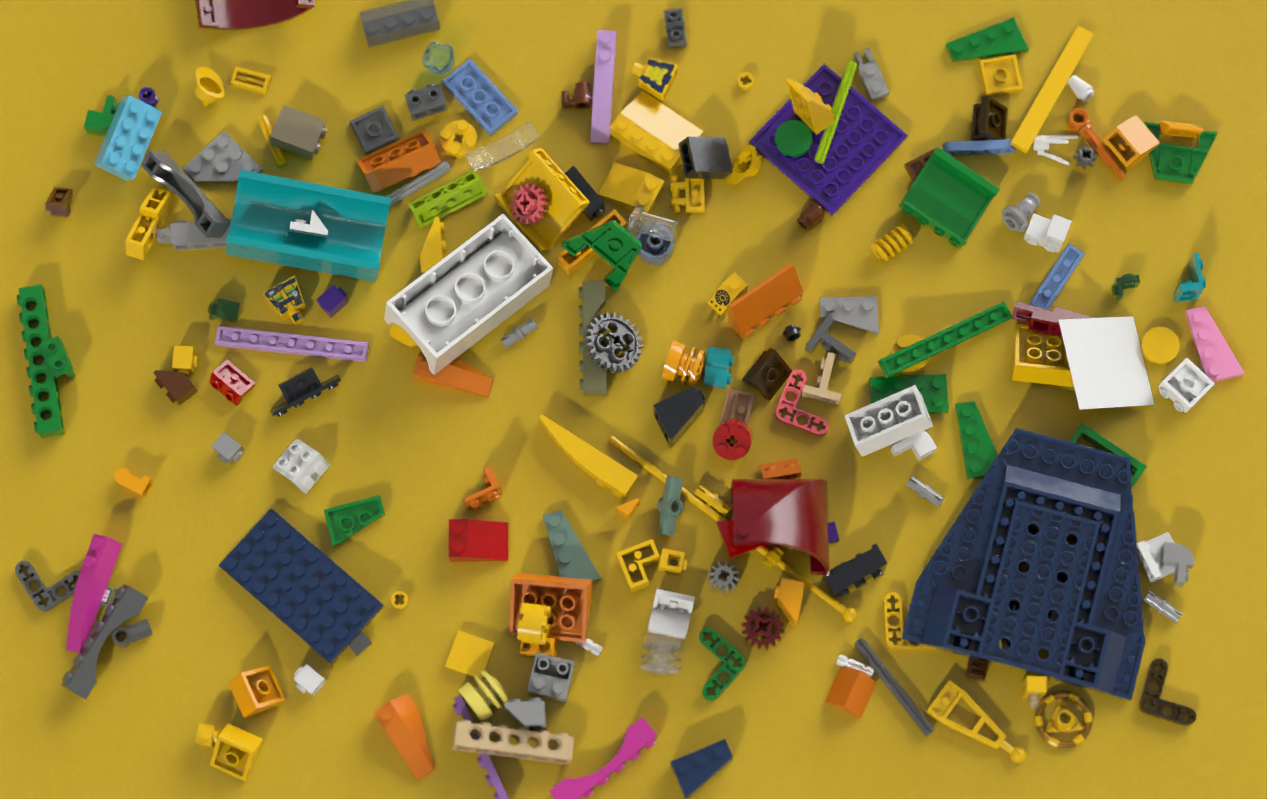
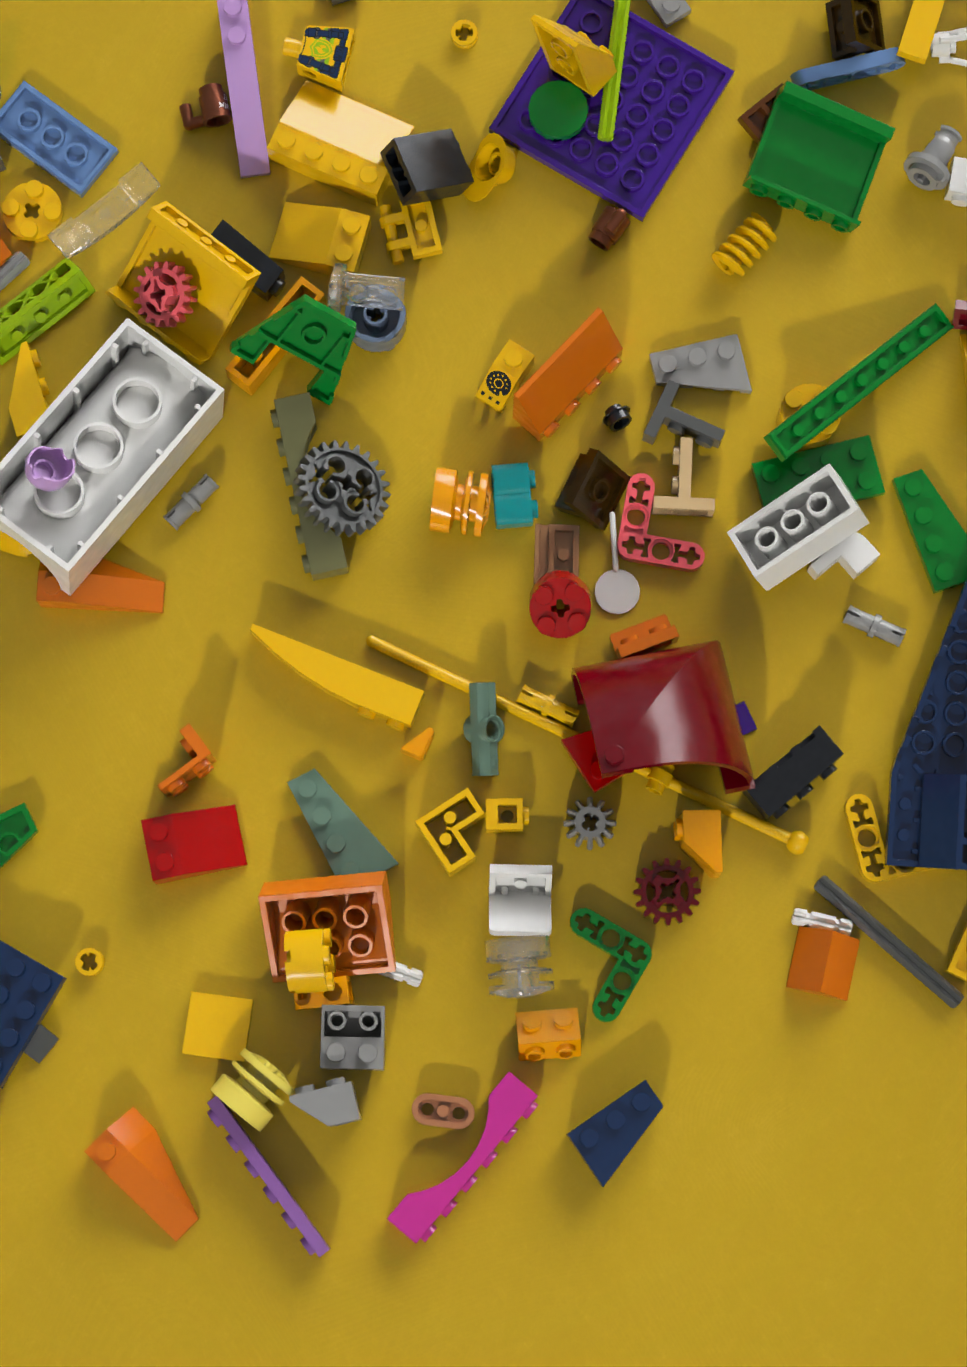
camera: 15 degrees left, 5 degrees up
(437, 294) = (48, 468): none -> lavender hair
(463, 742) = (235, 1171): tan brick -> none
(597, 734) = (443, 1111): none -> nougat plate
(671, 700) = (548, 1034): none -> light orange bracket
(678, 413) = (467, 579): black slope -> none
(770, 438) = (616, 589): none -> white piece

